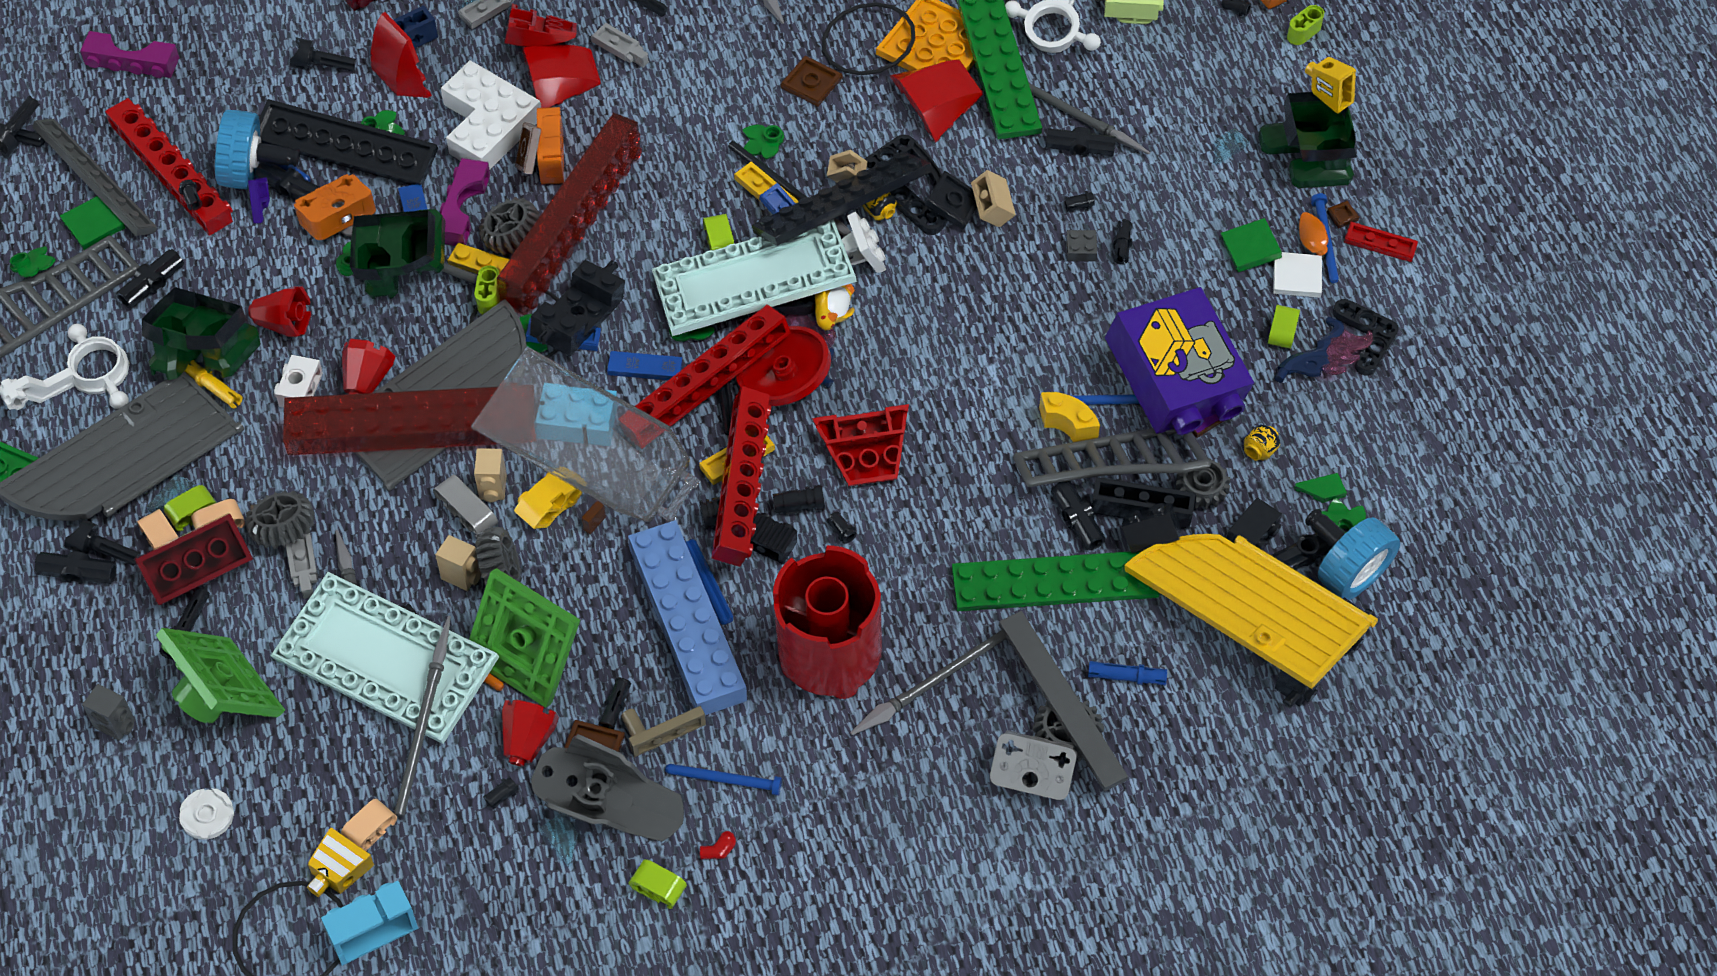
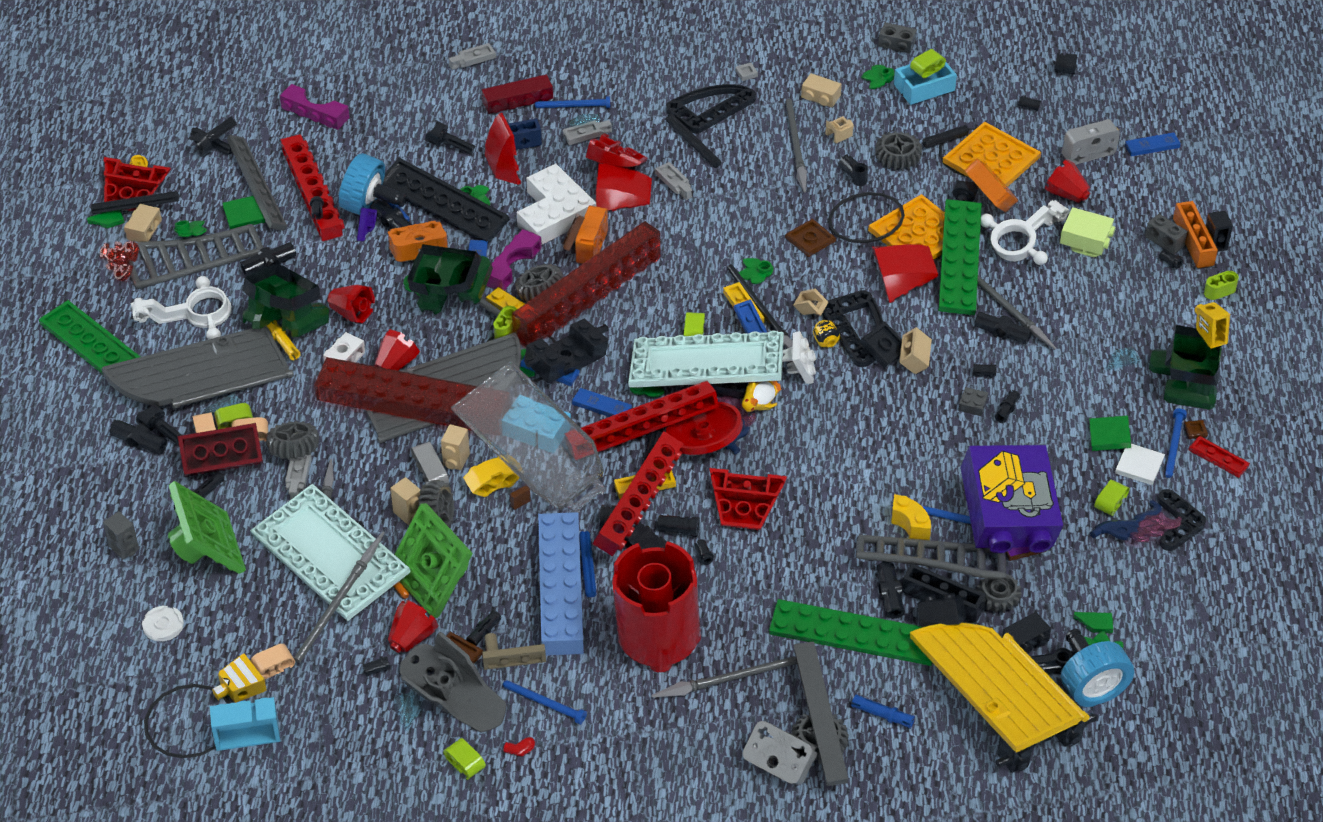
camera: 20 degrees right, 10 degrees down
(841, 198) = (794, 321): black plate -> none
(1261, 442) = (1058, 575): yellow head -> none
(1313, 234) = (1164, 437): orange arm -> none

